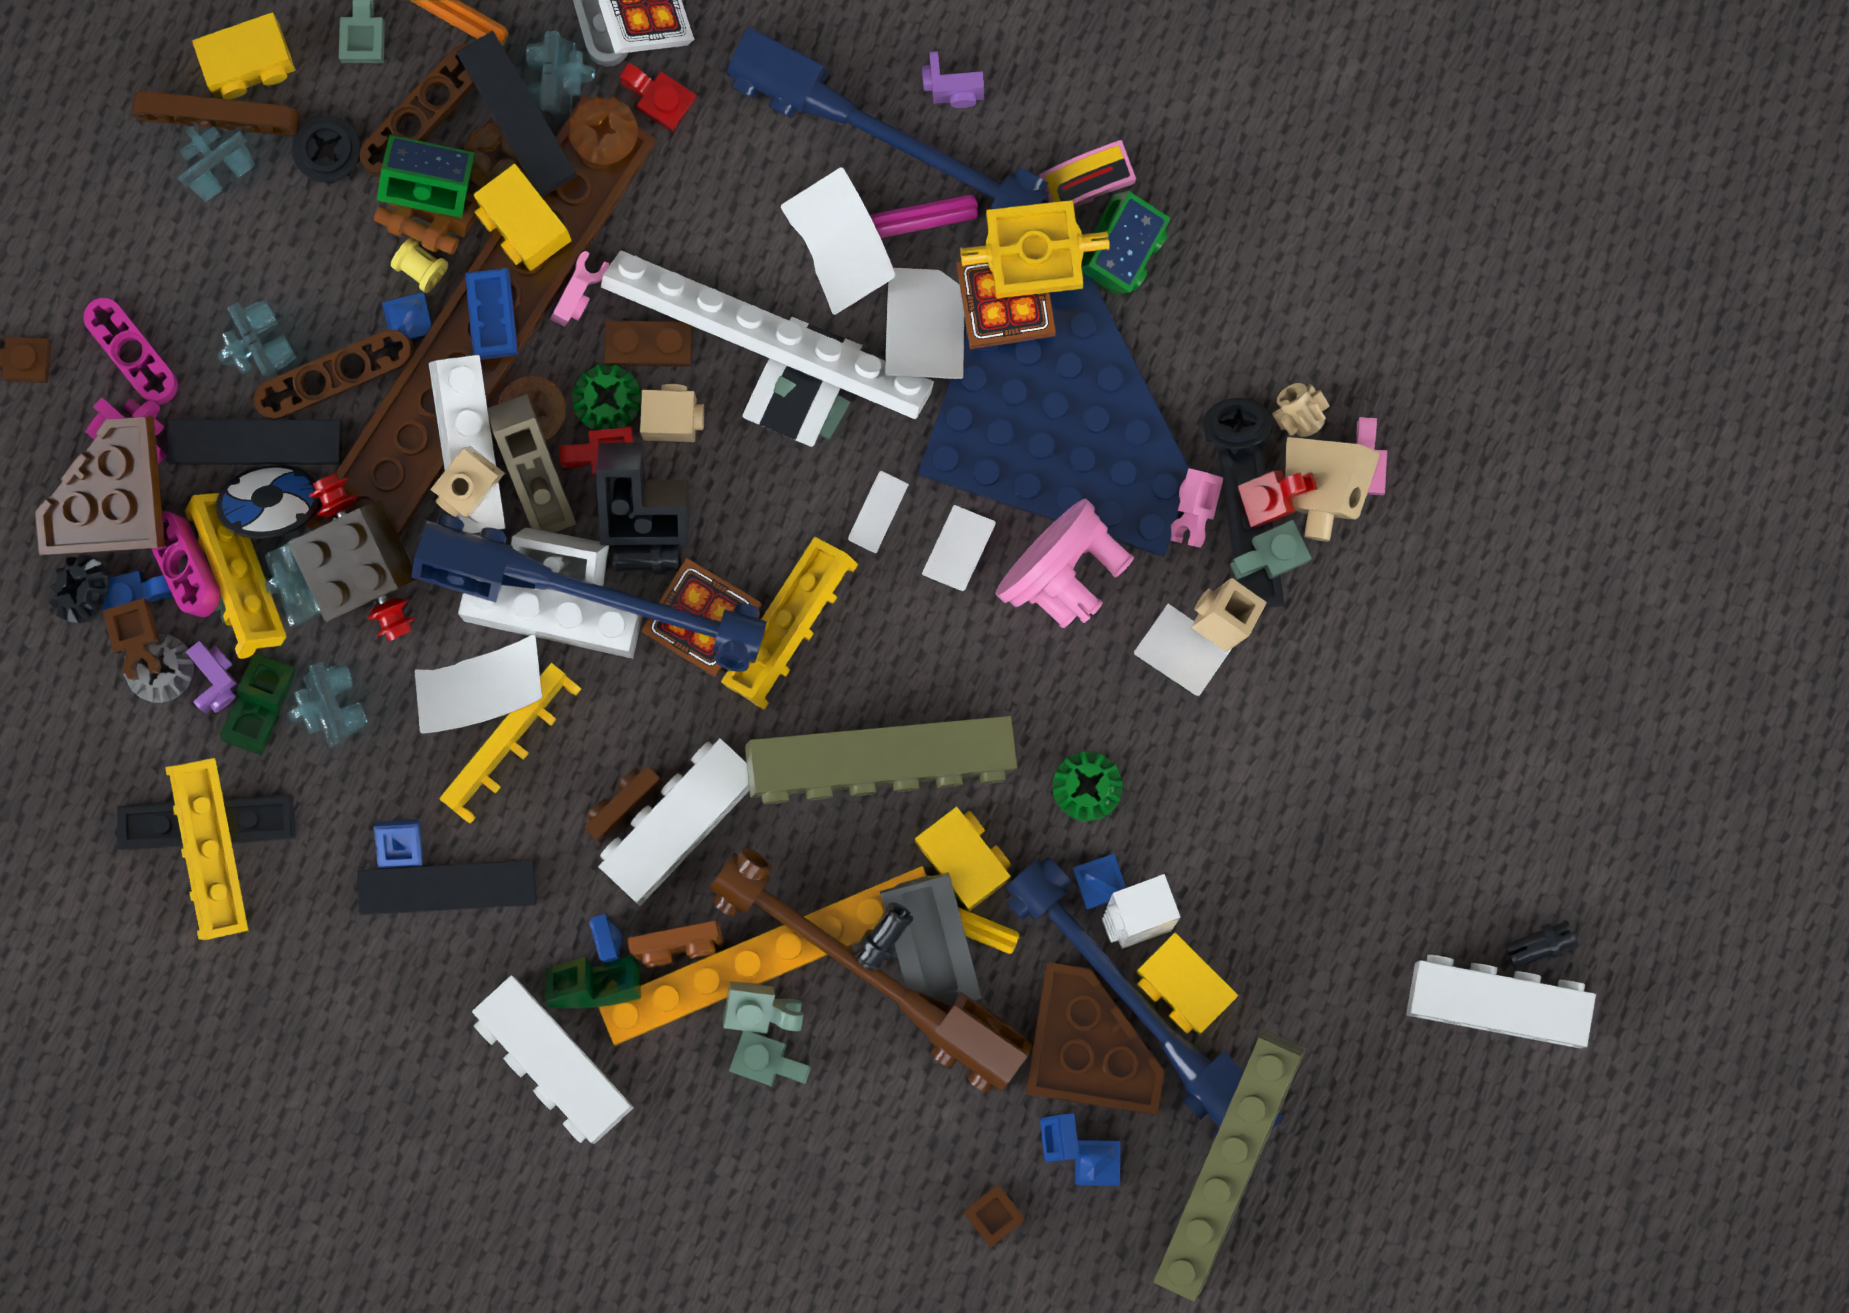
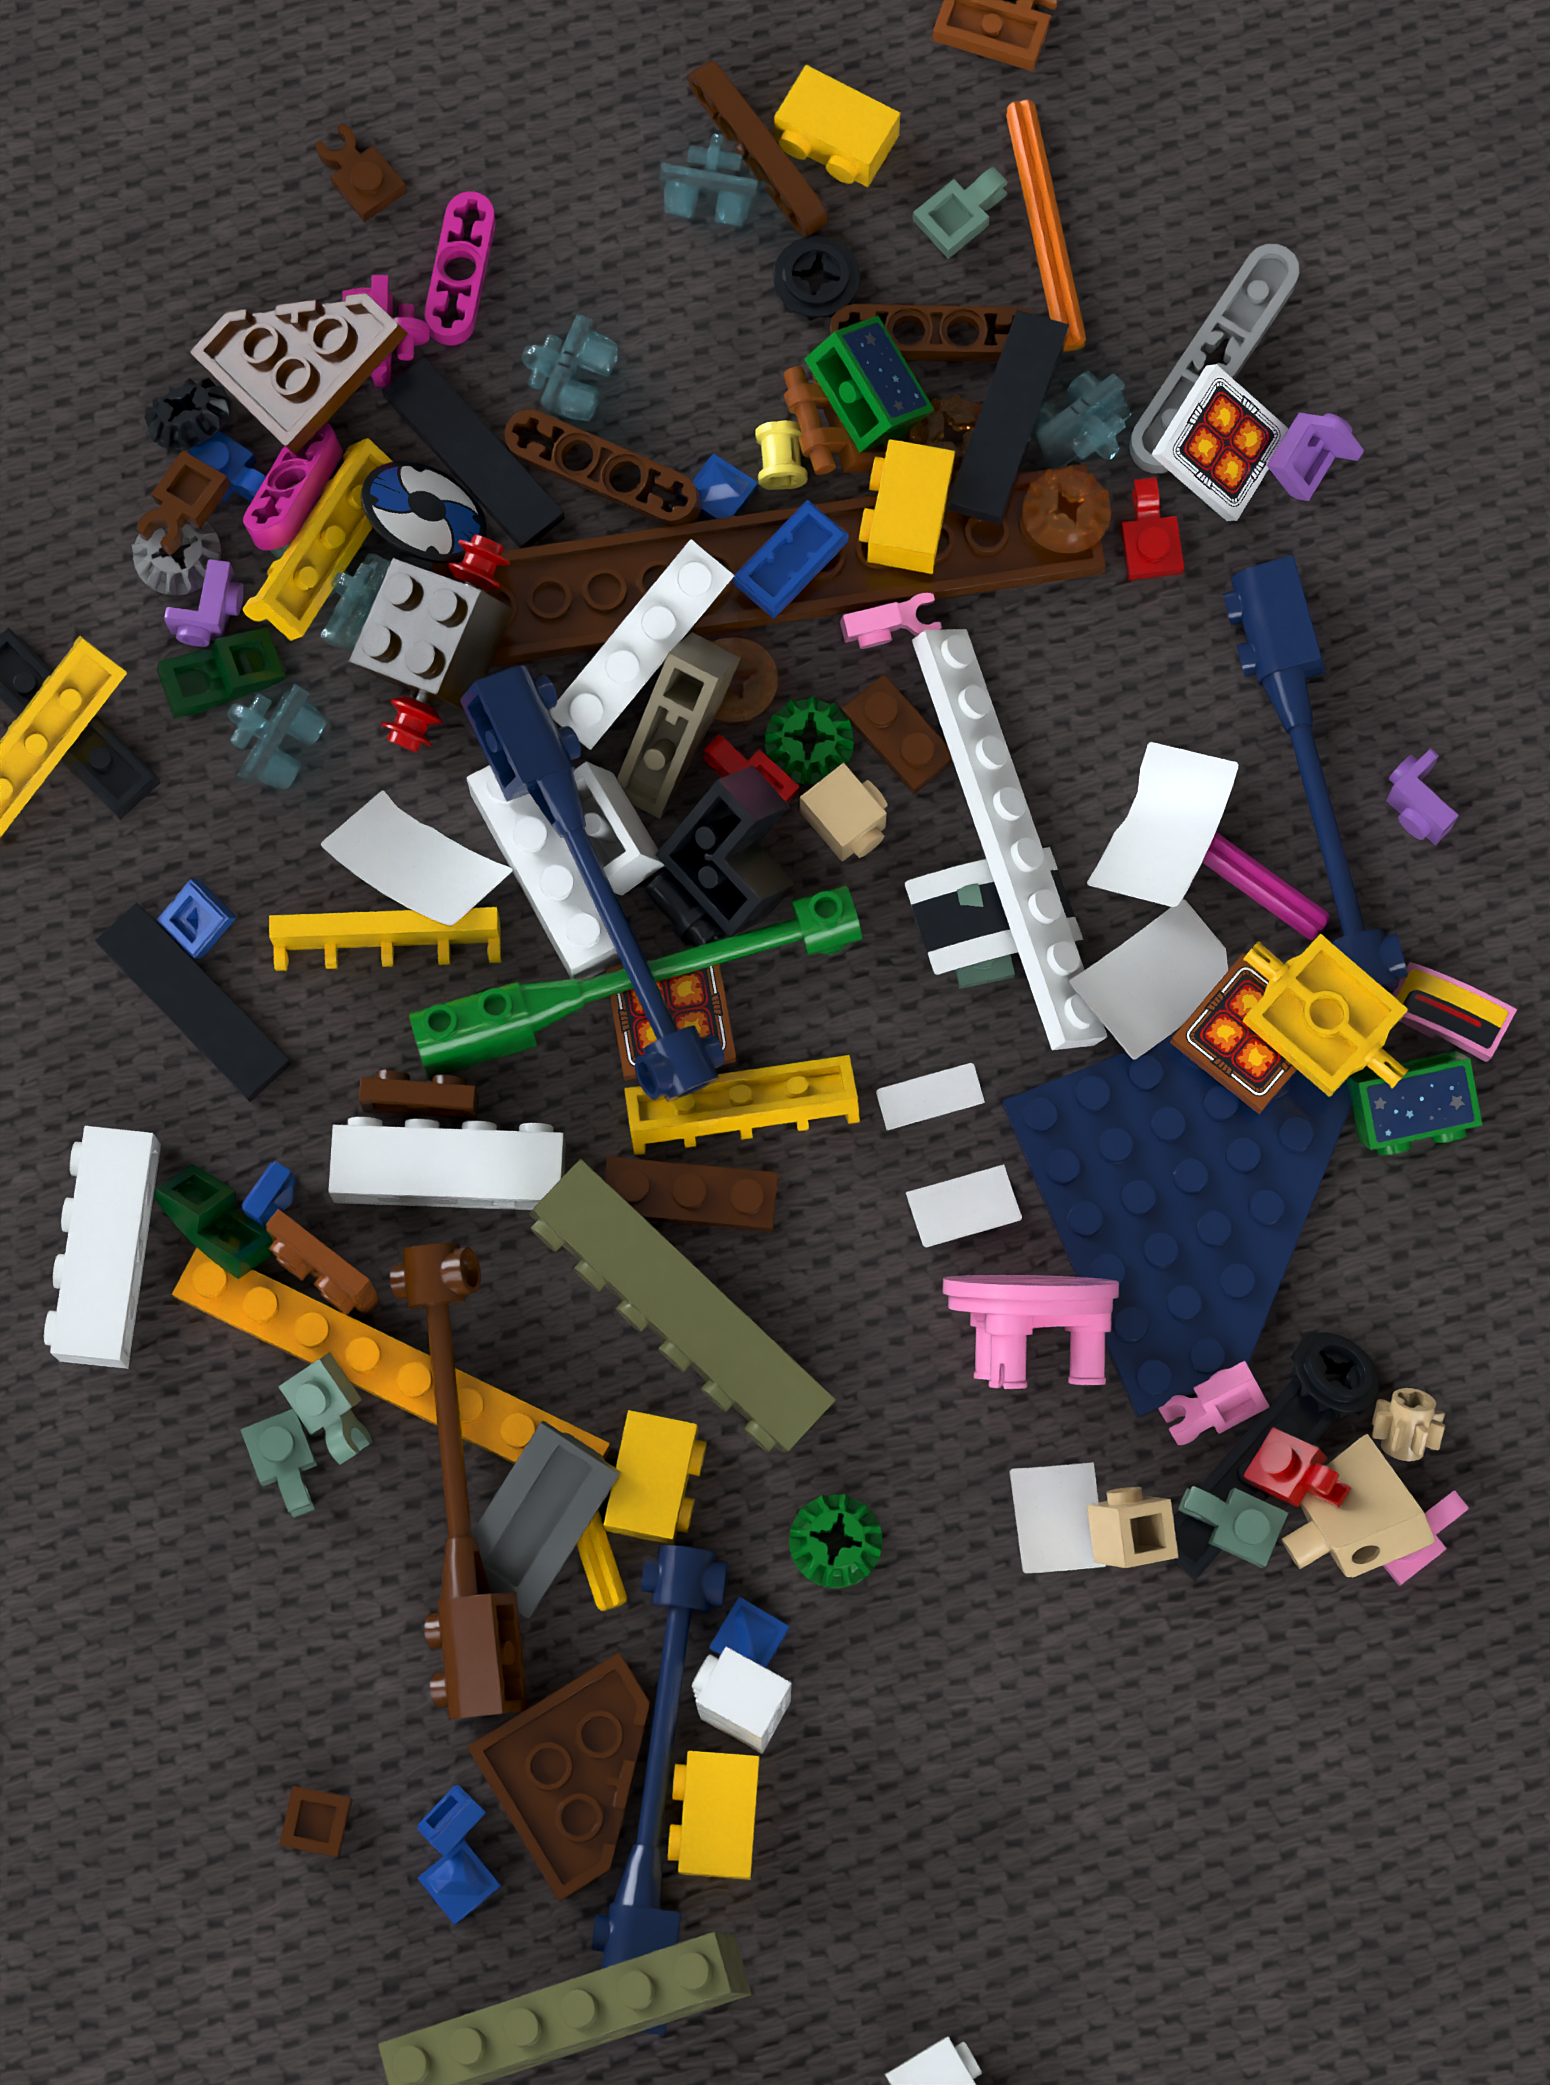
camera: 45 degrees right, 5 degrees down
(466, 482) = (596, 669): tan brick -> none
(622, 706) = (508, 1016): none -> green bar
(818, 693) = (695, 1193): none -> reddish brown plate
(880, 941) = (492, 1464): black pin -> none

